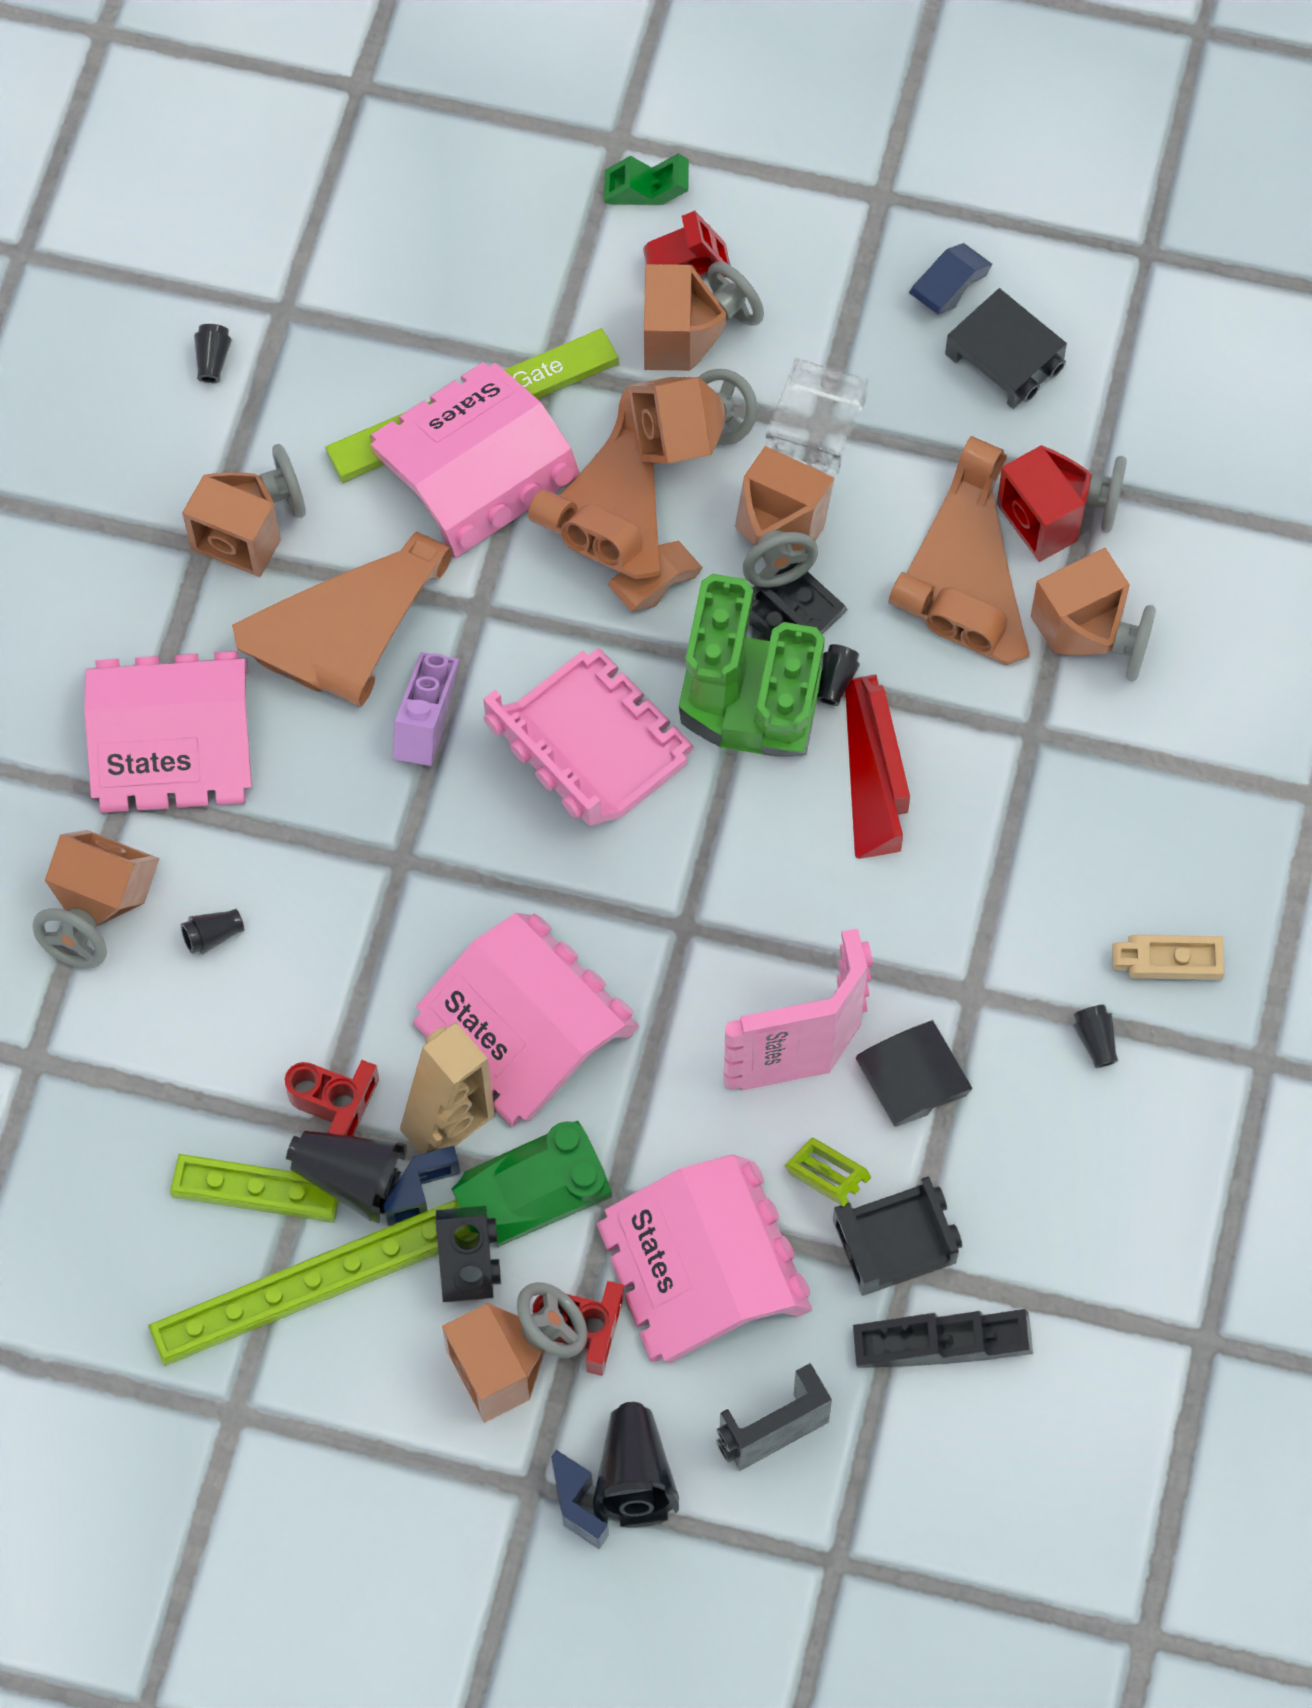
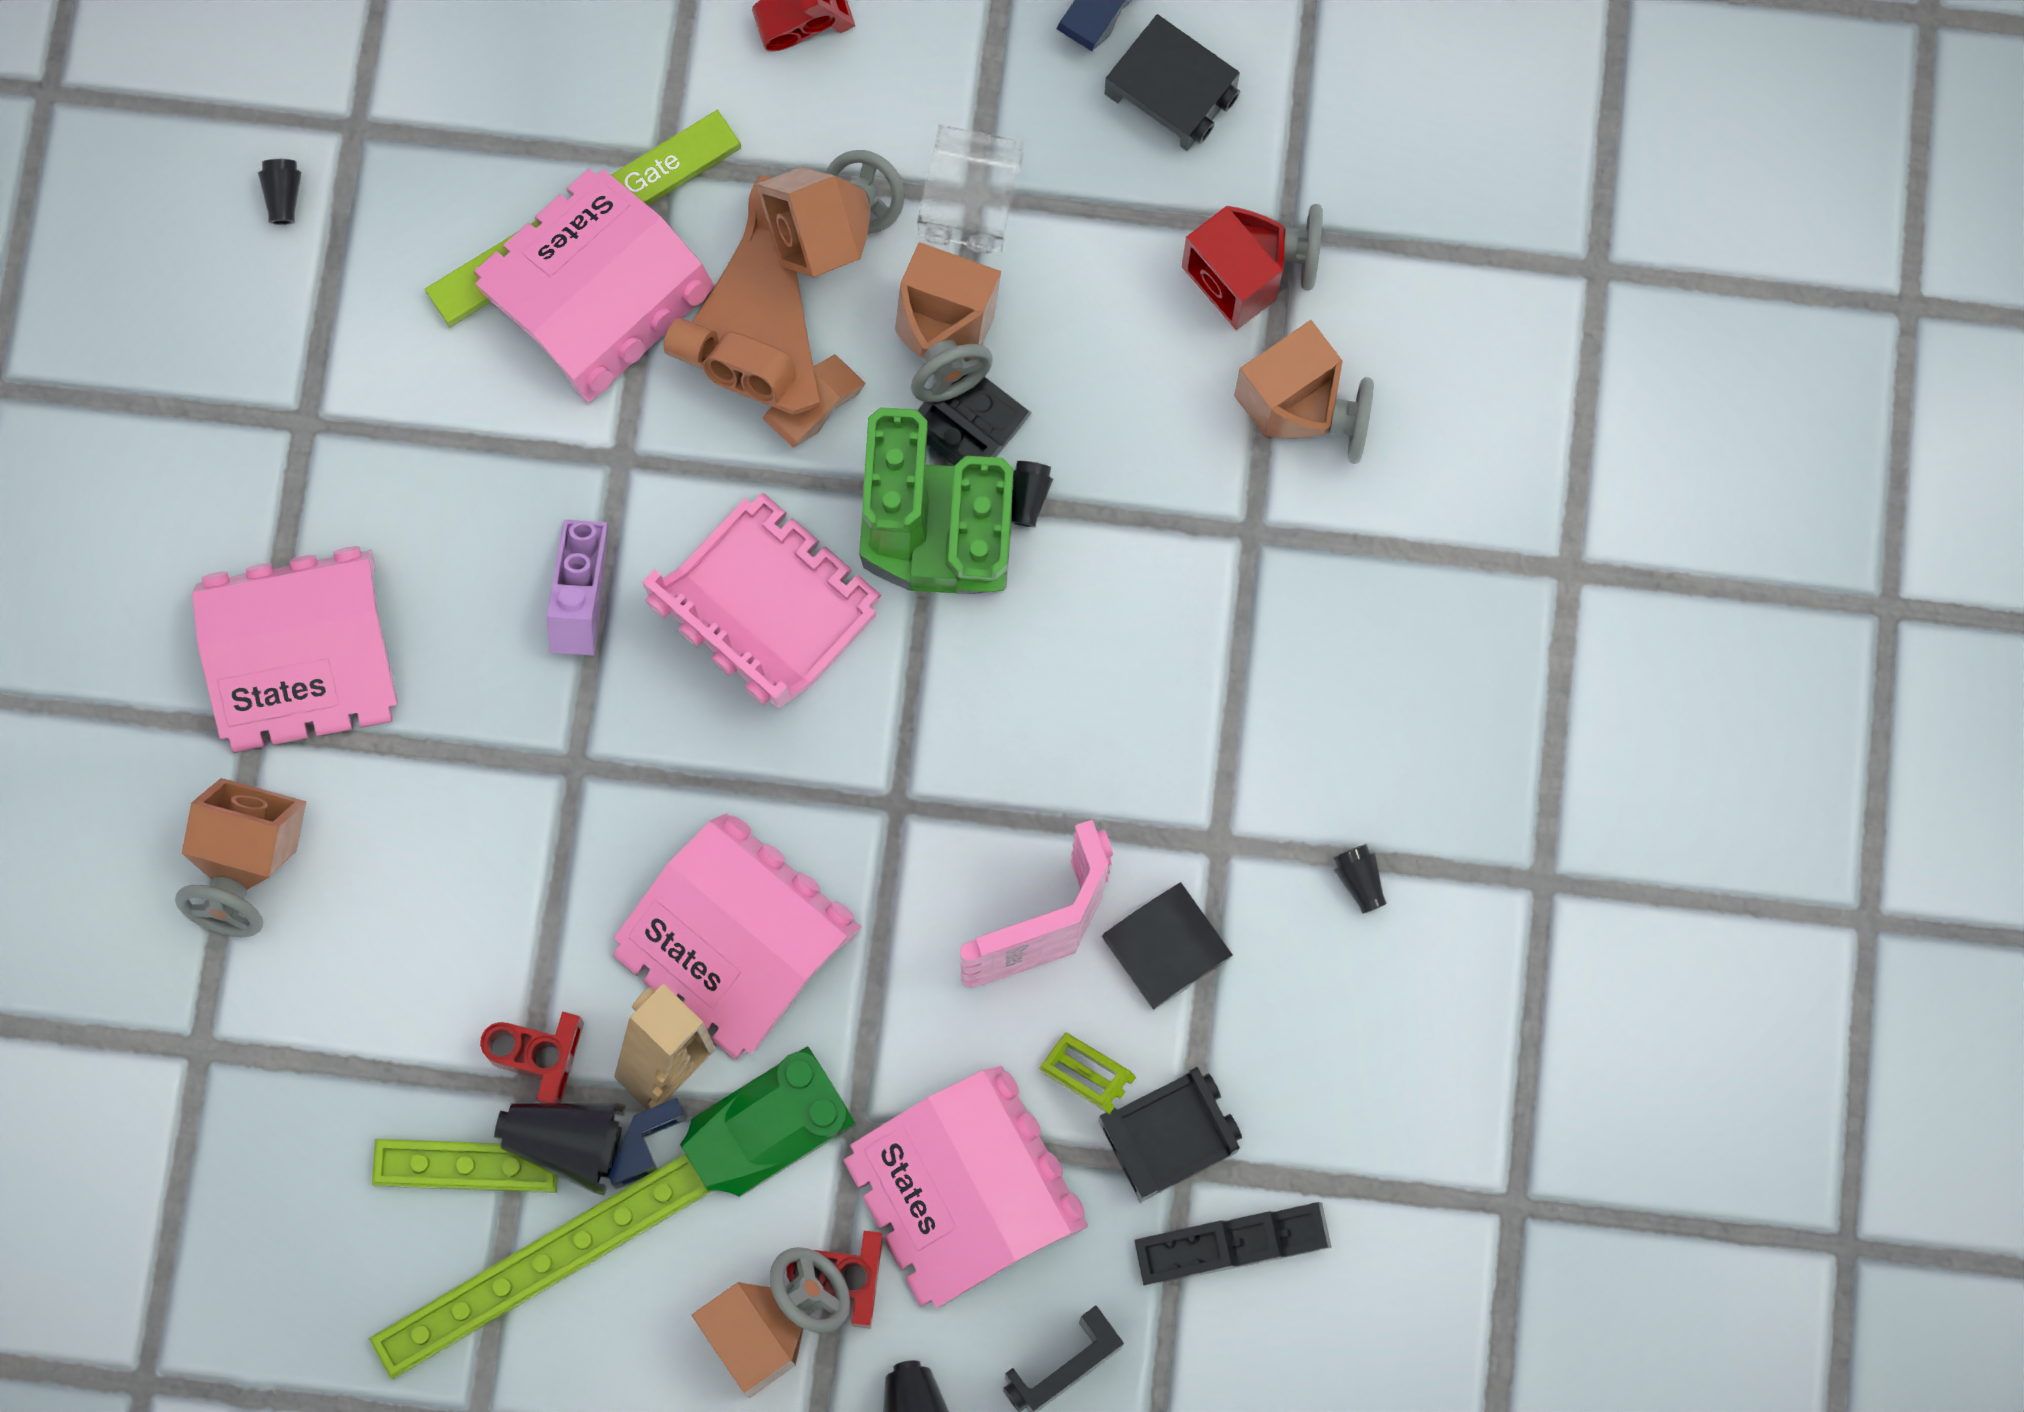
camera: 10 degrees left, 10 degrees up
(210, 930) = (374, 876): black cone -> none
(236, 516) = (333, 386): nougat piece -> none
(342, 626) = (475, 503): nougat panel -> none
(457, 1254) = (700, 1219): black brick -> none
(688, 318) = (812, 90): nougat piece -> none
(876, 770) = (1084, 598): red wedge -> none
(962, 570) = (1151, 351): nougat panel -> none
(1170, 957) = (1430, 777): tan hinge -> none

